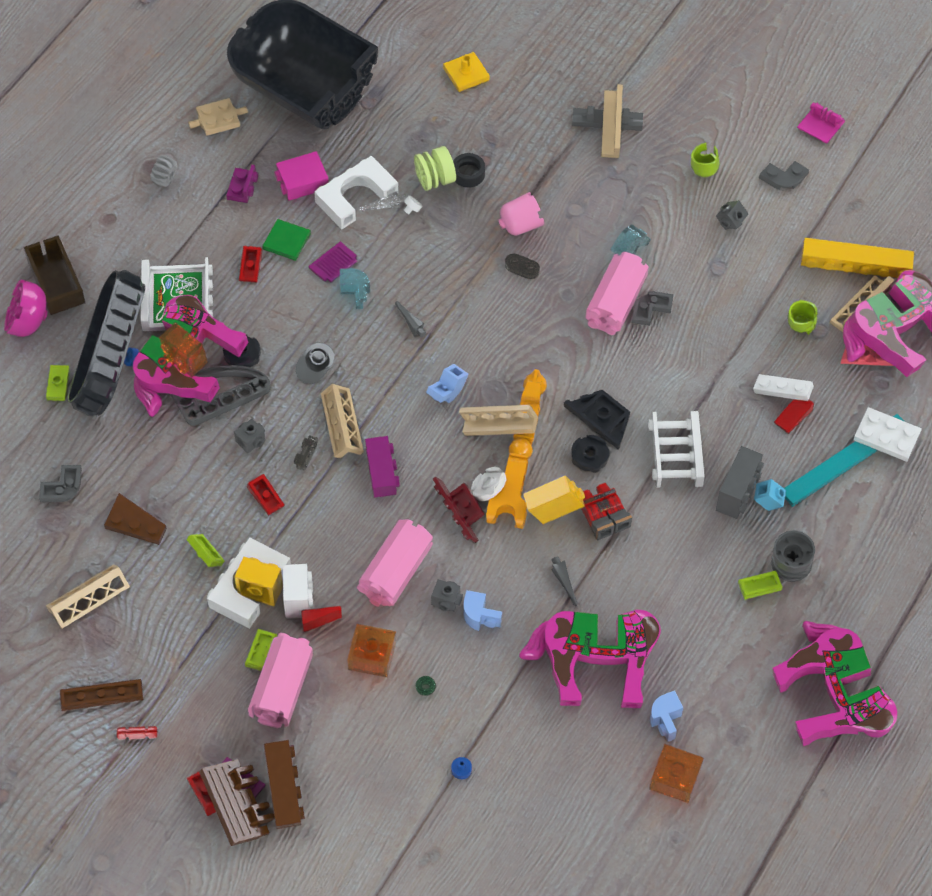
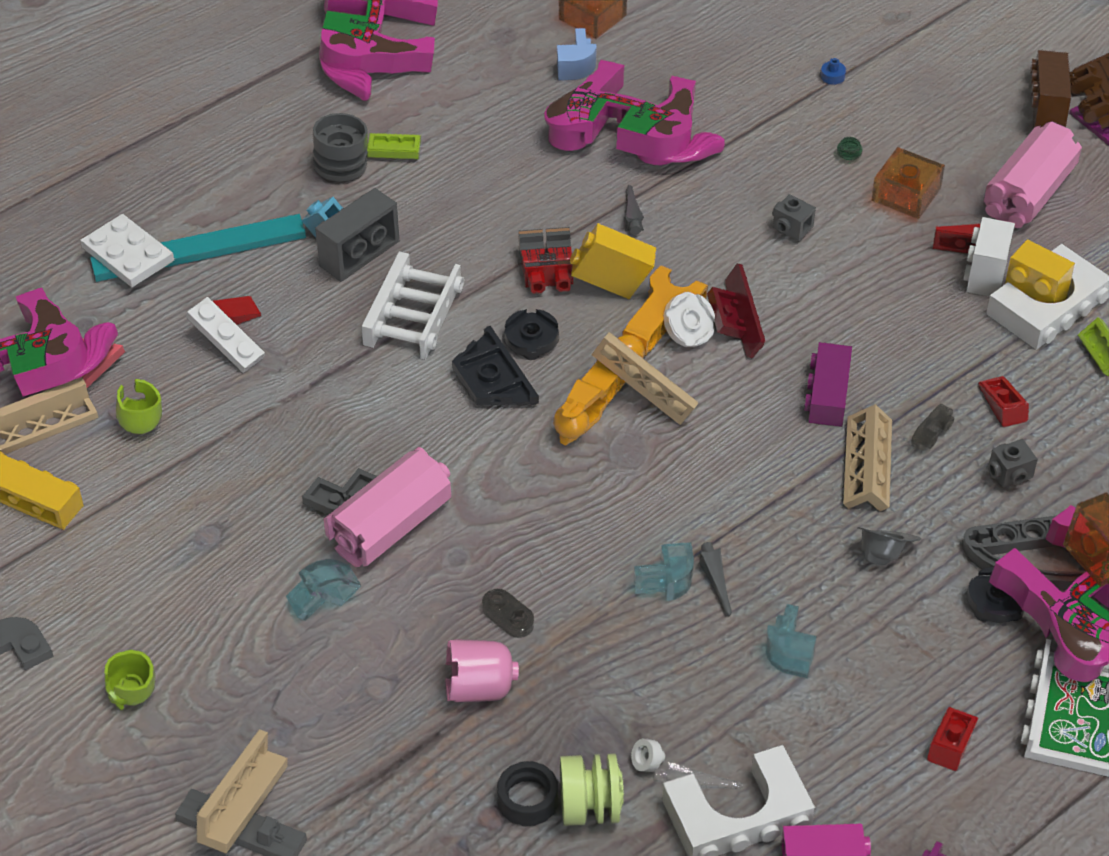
camera: 160 degrees left, 10 degrees down
(259, 649) = (1048, 226): lime plate -> none
(286, 239) = (881, 762): green tile -> none
(329, 264) = (810, 705): magenta window -> none
(395, 563) = (849, 256): bright pink brick -> none
(437, 308) = (671, 576): none -> clear light blue brick
(449, 385) = (698, 458): light blue brick -> none
(476, 613) = (758, 197): light blue brick -> none
(732, 215) = (133, 586): dark grey brick -> none

